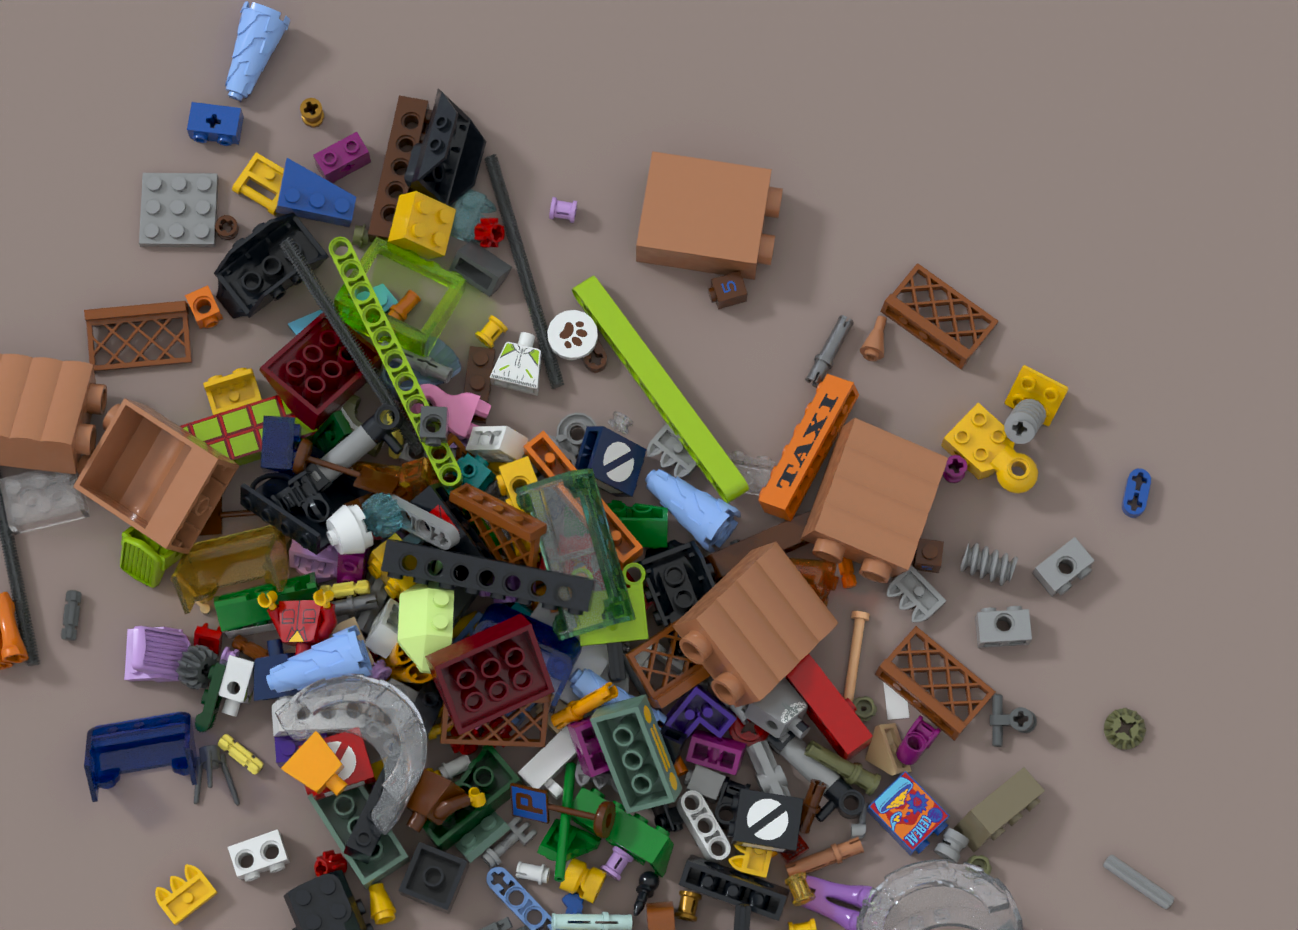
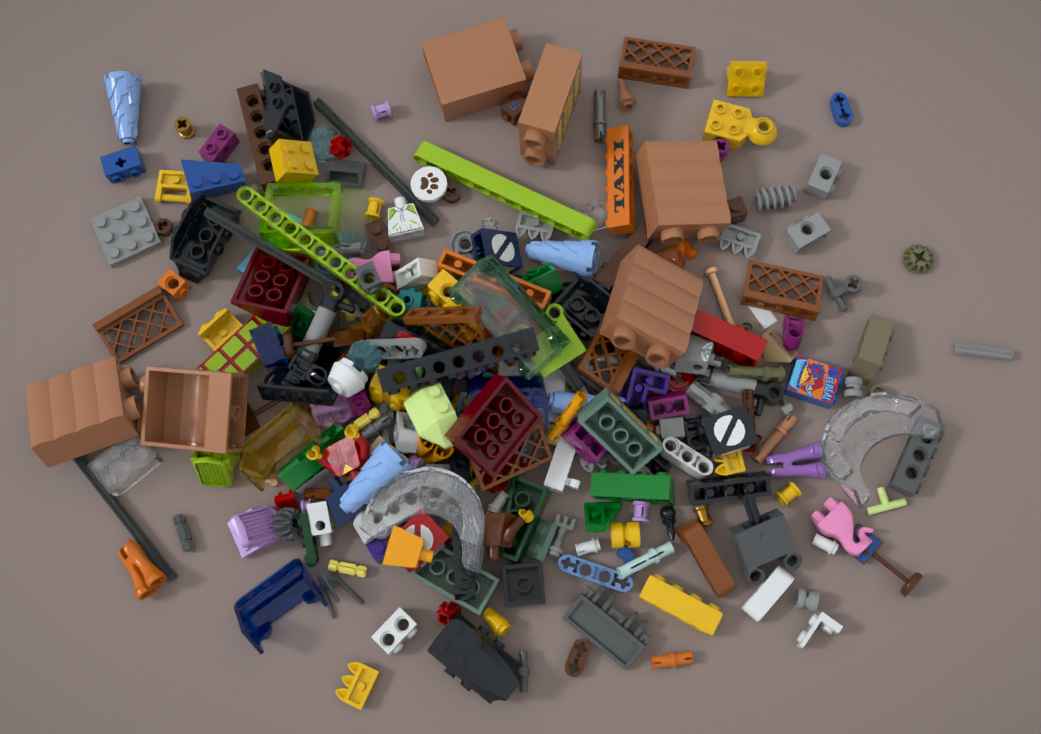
camera: 20 degrees left, 0 degrees up
(534, 805) = (566, 500): reddish brown piece -> none
(565, 819) = (594, 502): green piece -> none
(767, 312) = (550, 105): none -> nougat brick
(799, 889) = (773, 466): clear yellow bush -> none
(1025, 421) = (757, 98): light grey piece -> none

